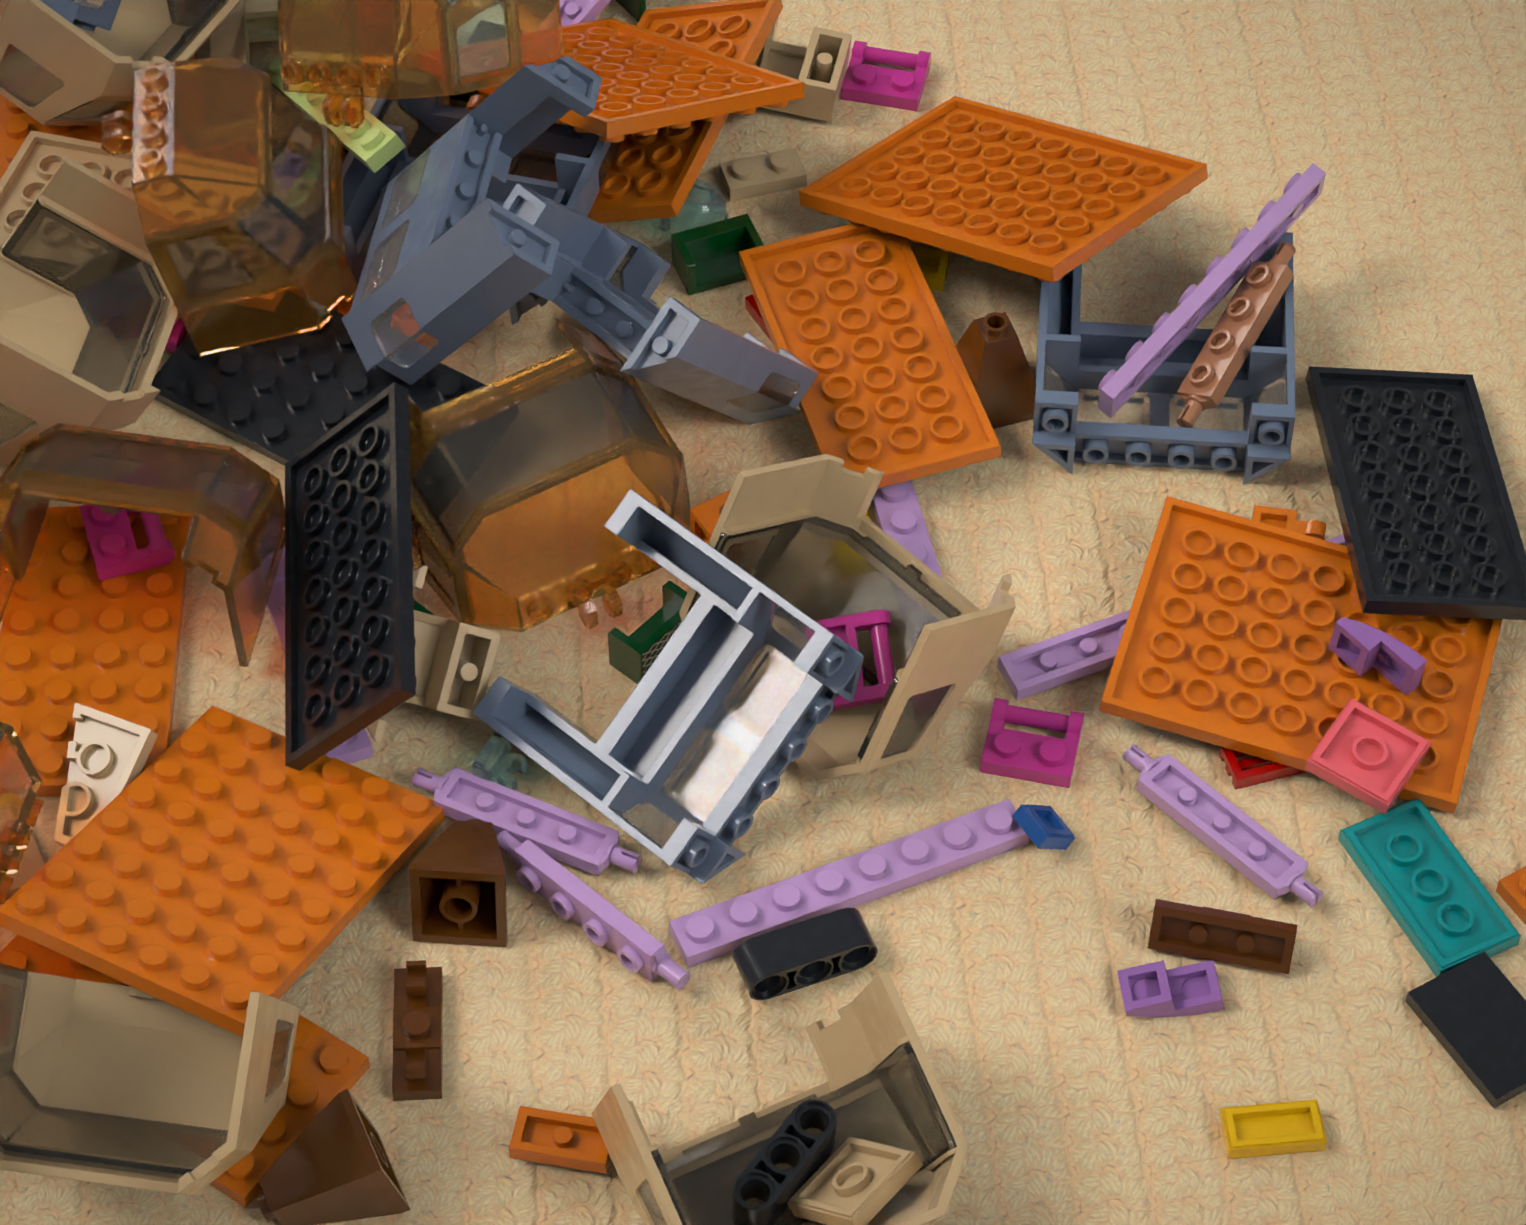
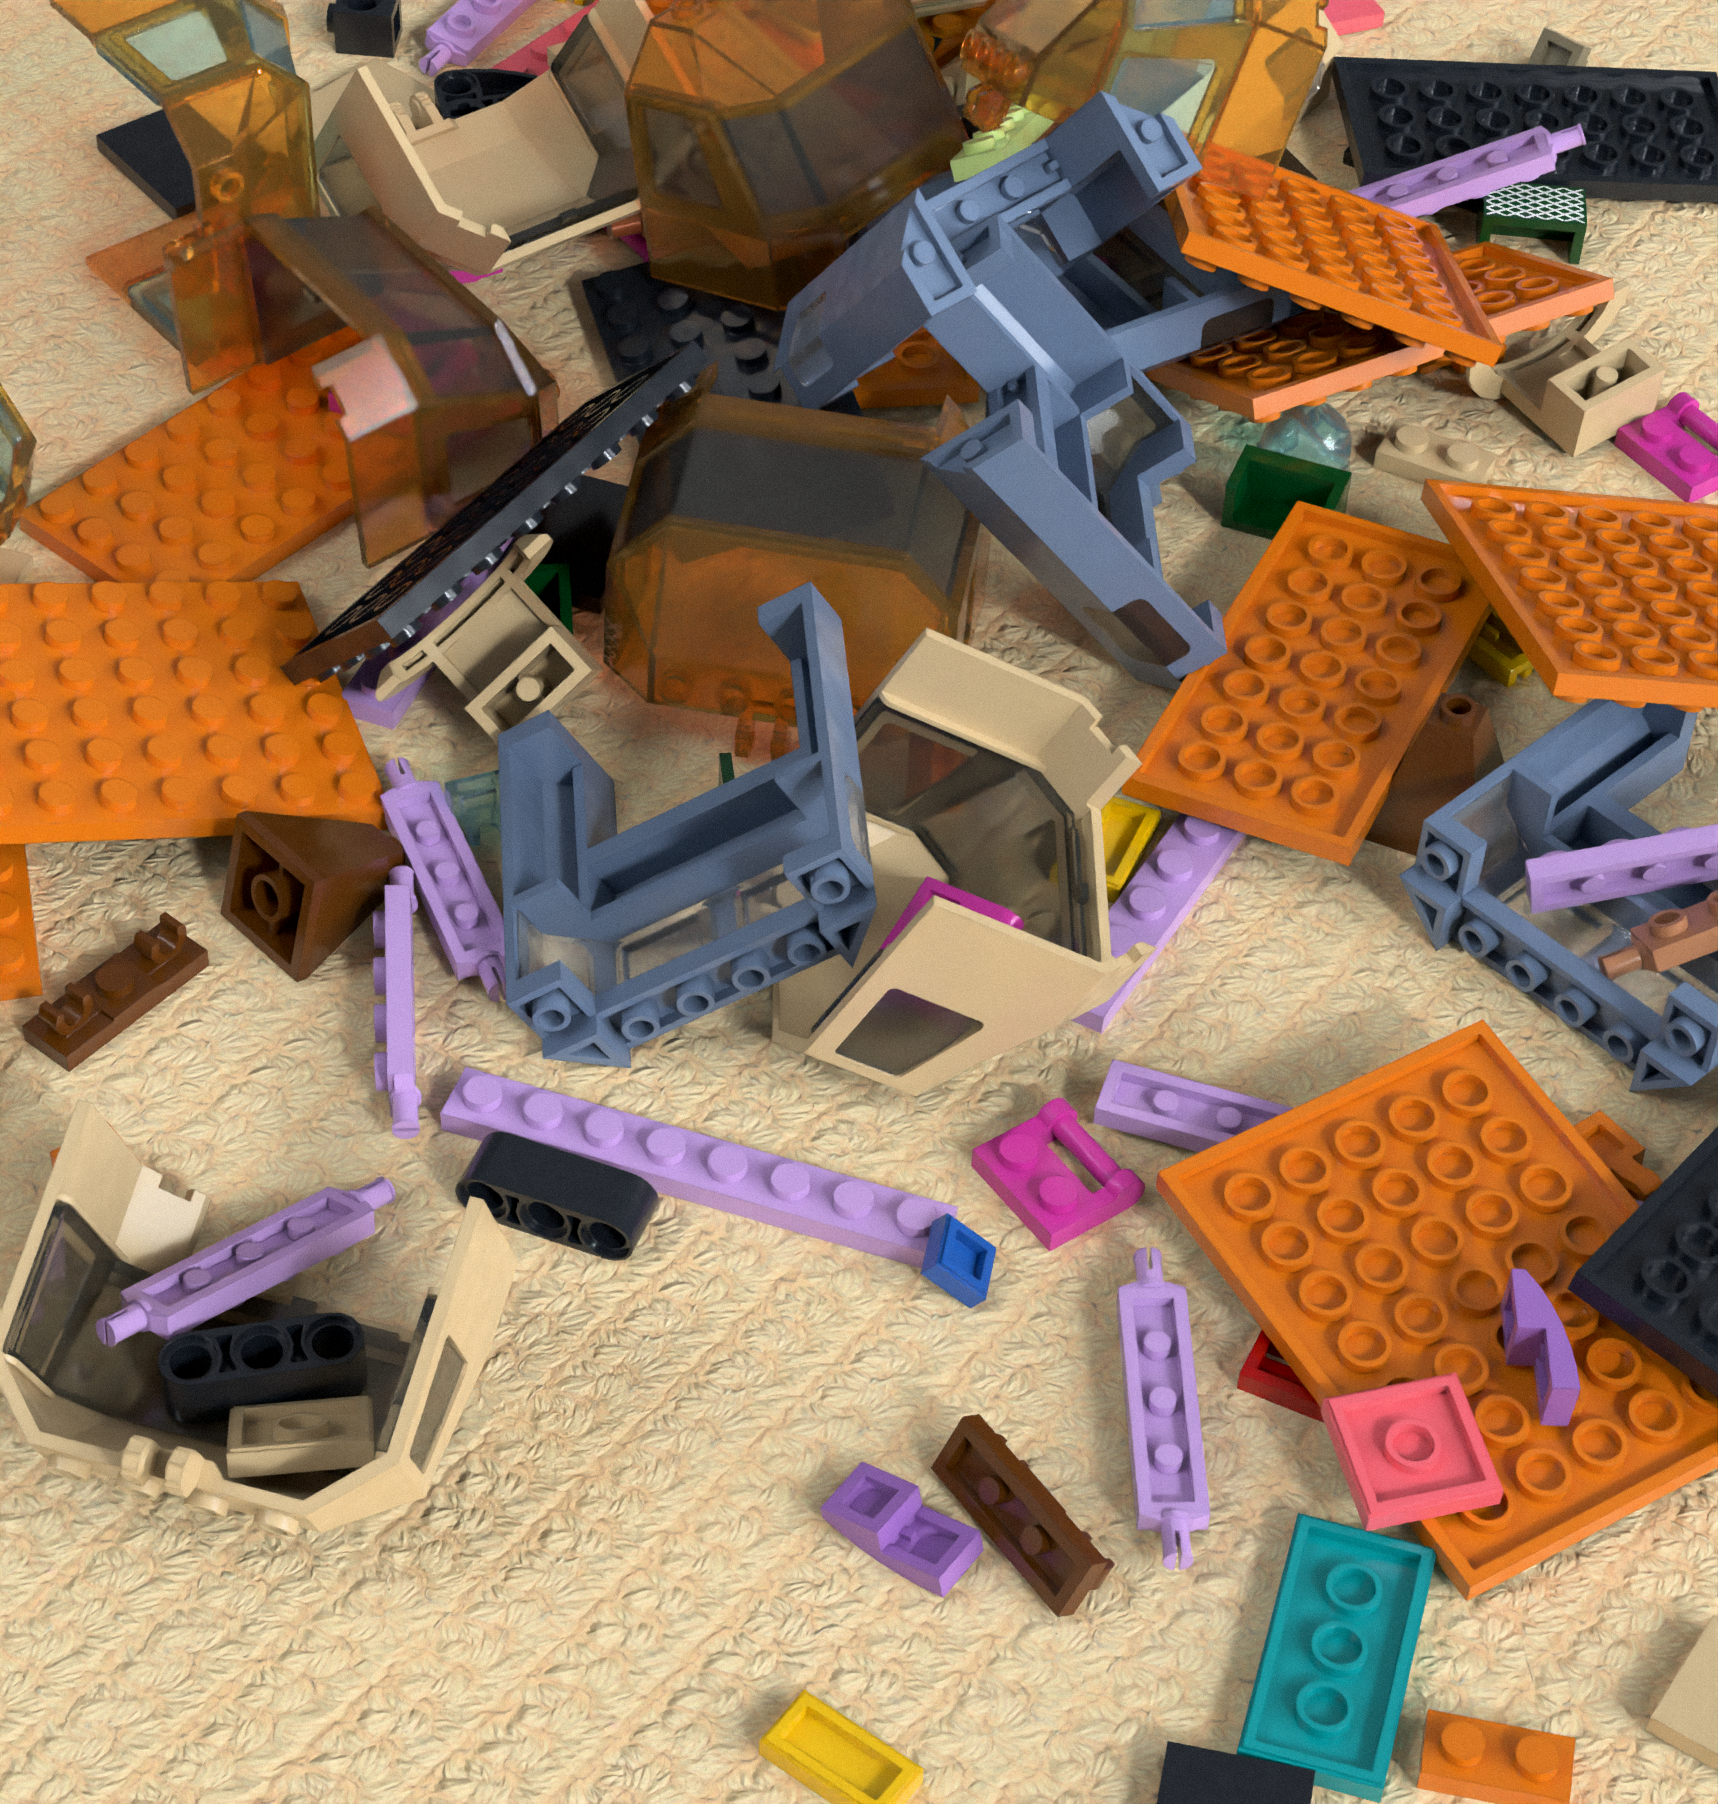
camera: 40 degrees right, 5 degrees down
(103, 762) = (133, 550): tan wing -> none
(702, 1118) = (247, 1263): none -> lavender plate

